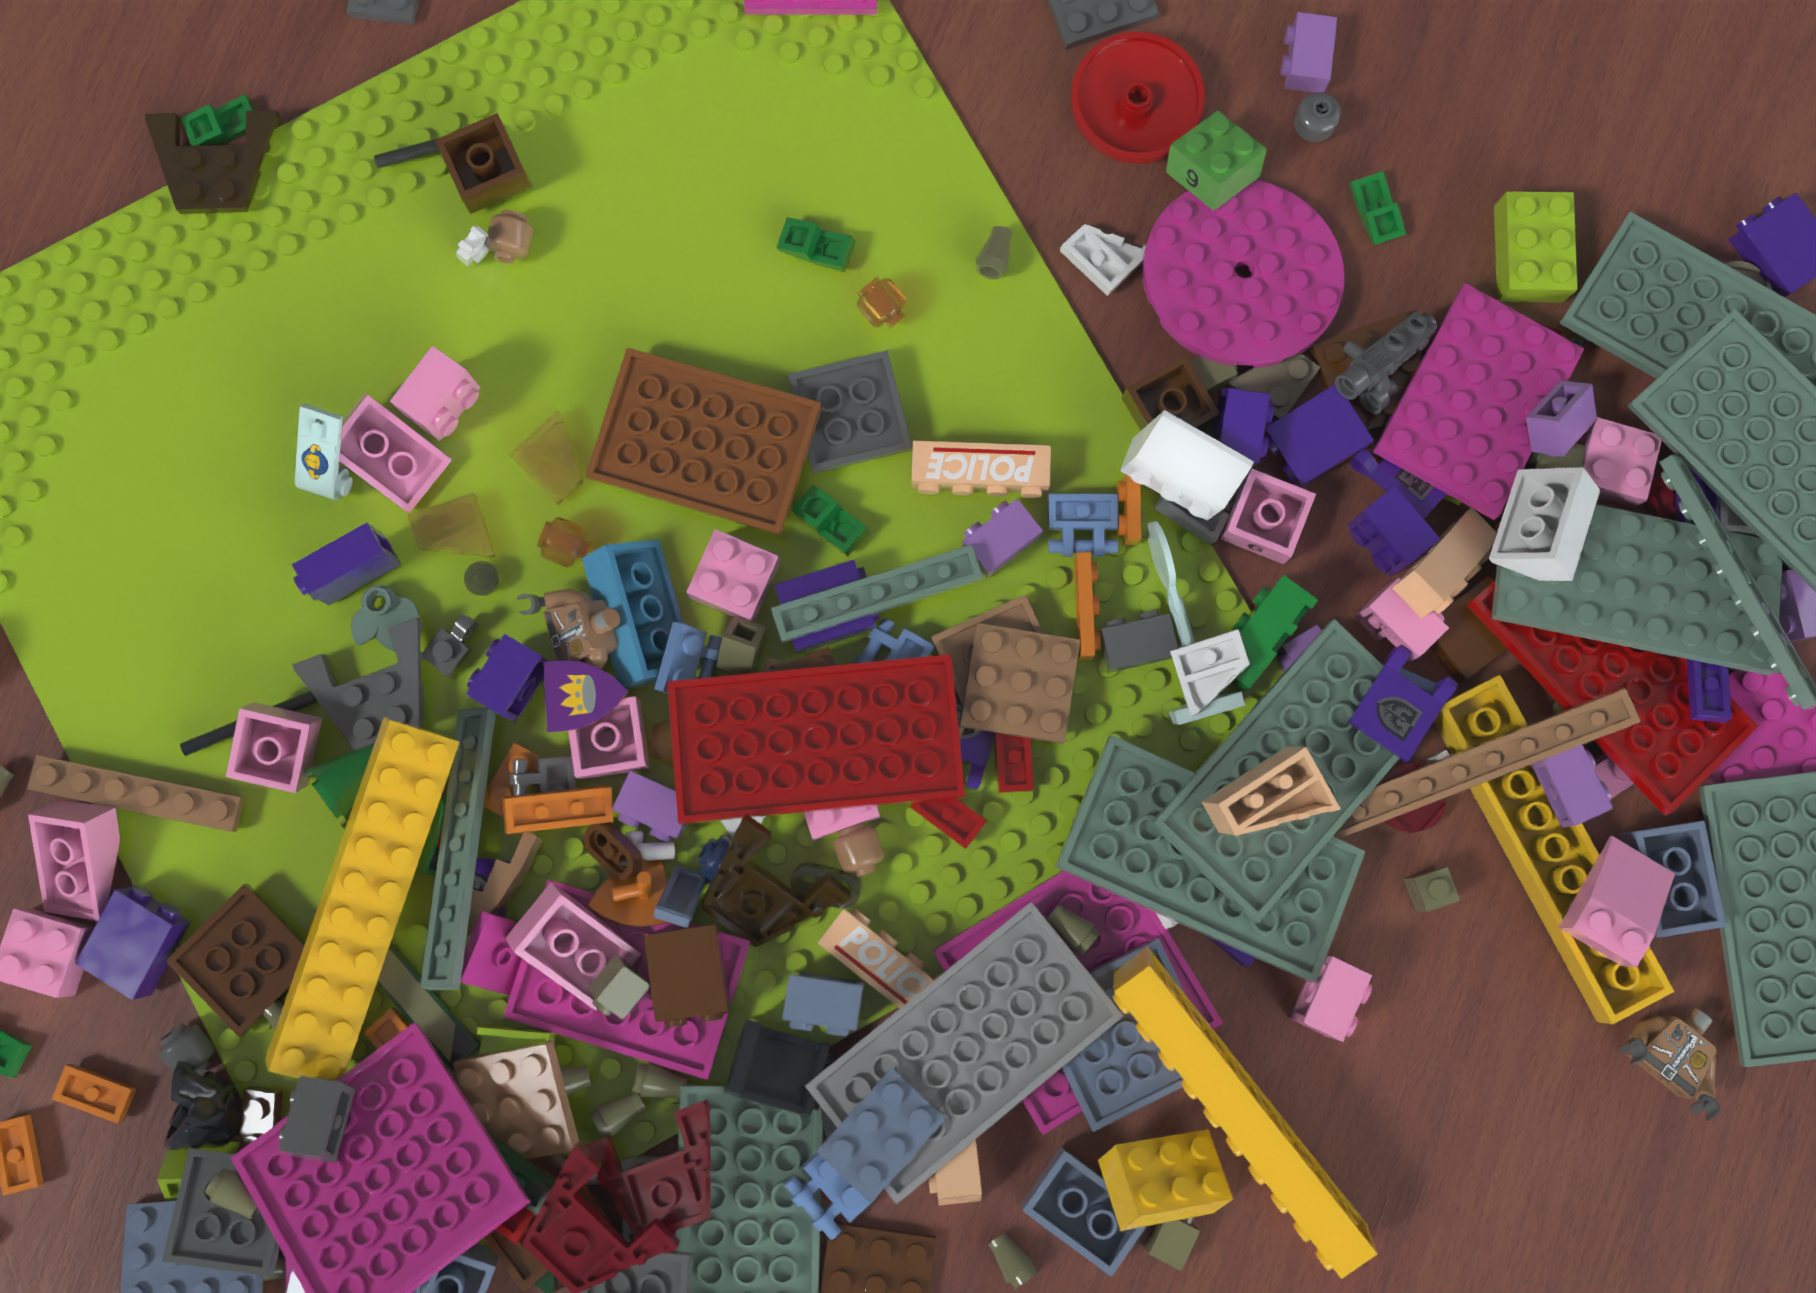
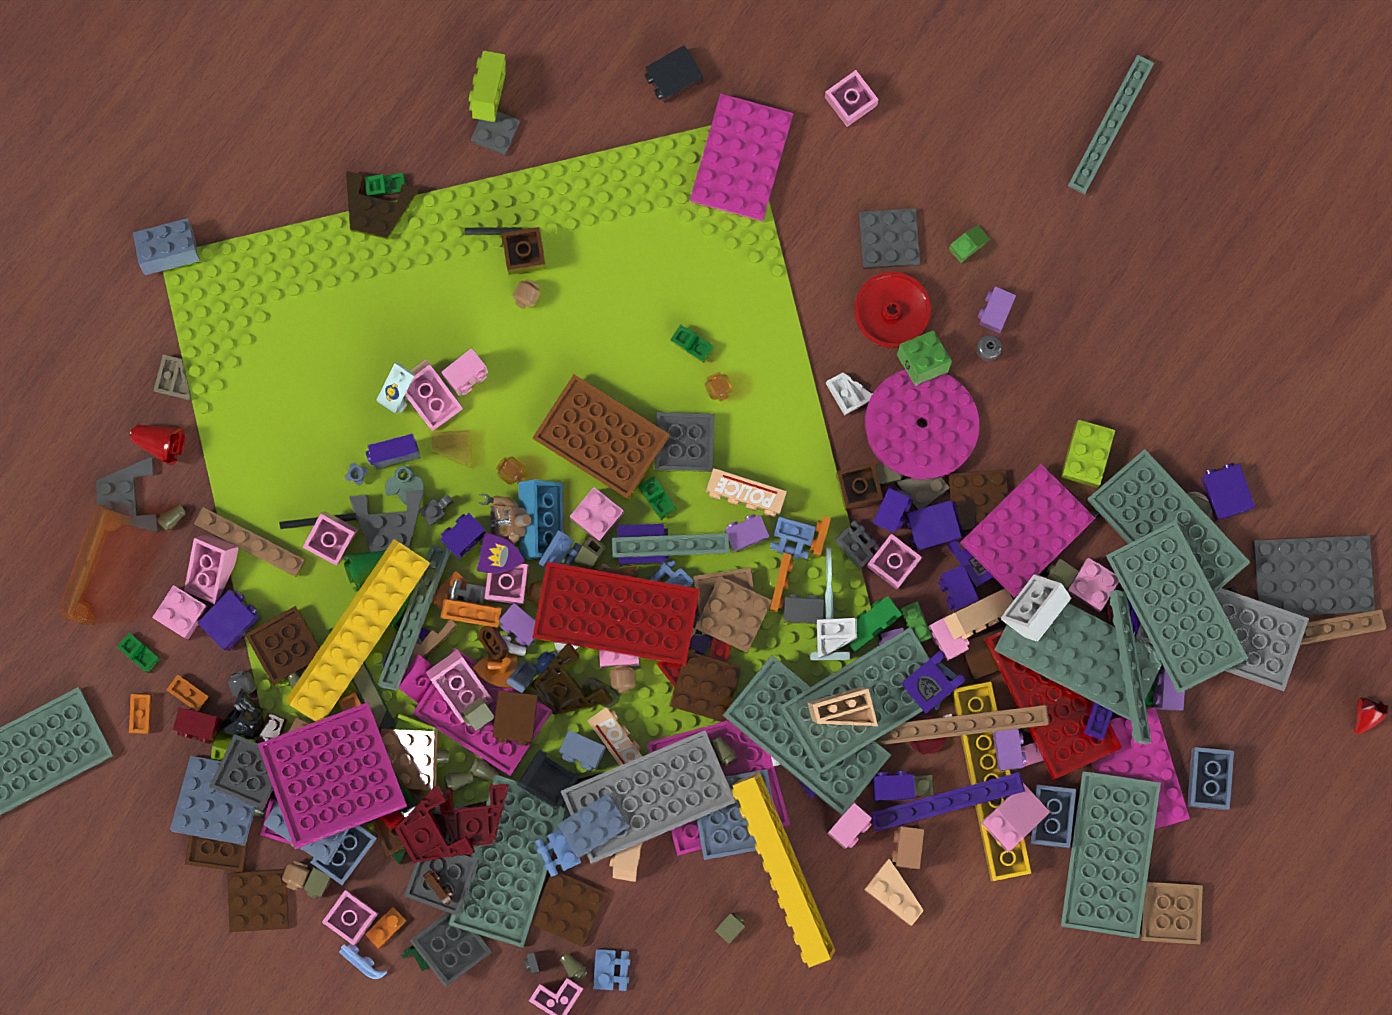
camera: 20 degrees right, 0 degrees up
(117, 1149) = (197, 724): none -> dark red brick
(231, 1193) = (254, 761): olive cone -> none
(285, 623) = (351, 474): none -> sand blue plate
(316, 1119) = (308, 735): dark grey brick -> none
(473, 246) = (506, 296): white plate -> none
(481, 578) = (461, 477): clear smoke plate -> none
(550, 459) = (515, 422): clear yellow wing -> none
(995, 254) = (788, 376): olive cone -> none
(1007, 823) = (705, 686): none -> reddish brown plate
(1013, 1261) = (643, 917): olive cone -> none
(1077, 1209) = (688, 899): sand blue brick -> none
(1164, 1179) = (733, 893): yellow brick -> none
(1185, 465) = (853, 523): white slope -> none
(1337, 605) = (915, 619): none -> bright green brick
(1371, 367) = (974, 496): dark grey piece -> none
(1375, 208) = (1008, 407): green slope -> none
(1388, 907) = (893, 787): none -> dark purple brick
(1440, 1092) = (894, 893): none -> light nougat wedge
(1444, 1007) = (908, 847): none -> nougat brick
(1493, 905) = (947, 801): none -> dark purple plate
(1561, 418) = (1066, 553): medium lavender brick -> none
(1677, 1057) = (1025, 909): torso -> none

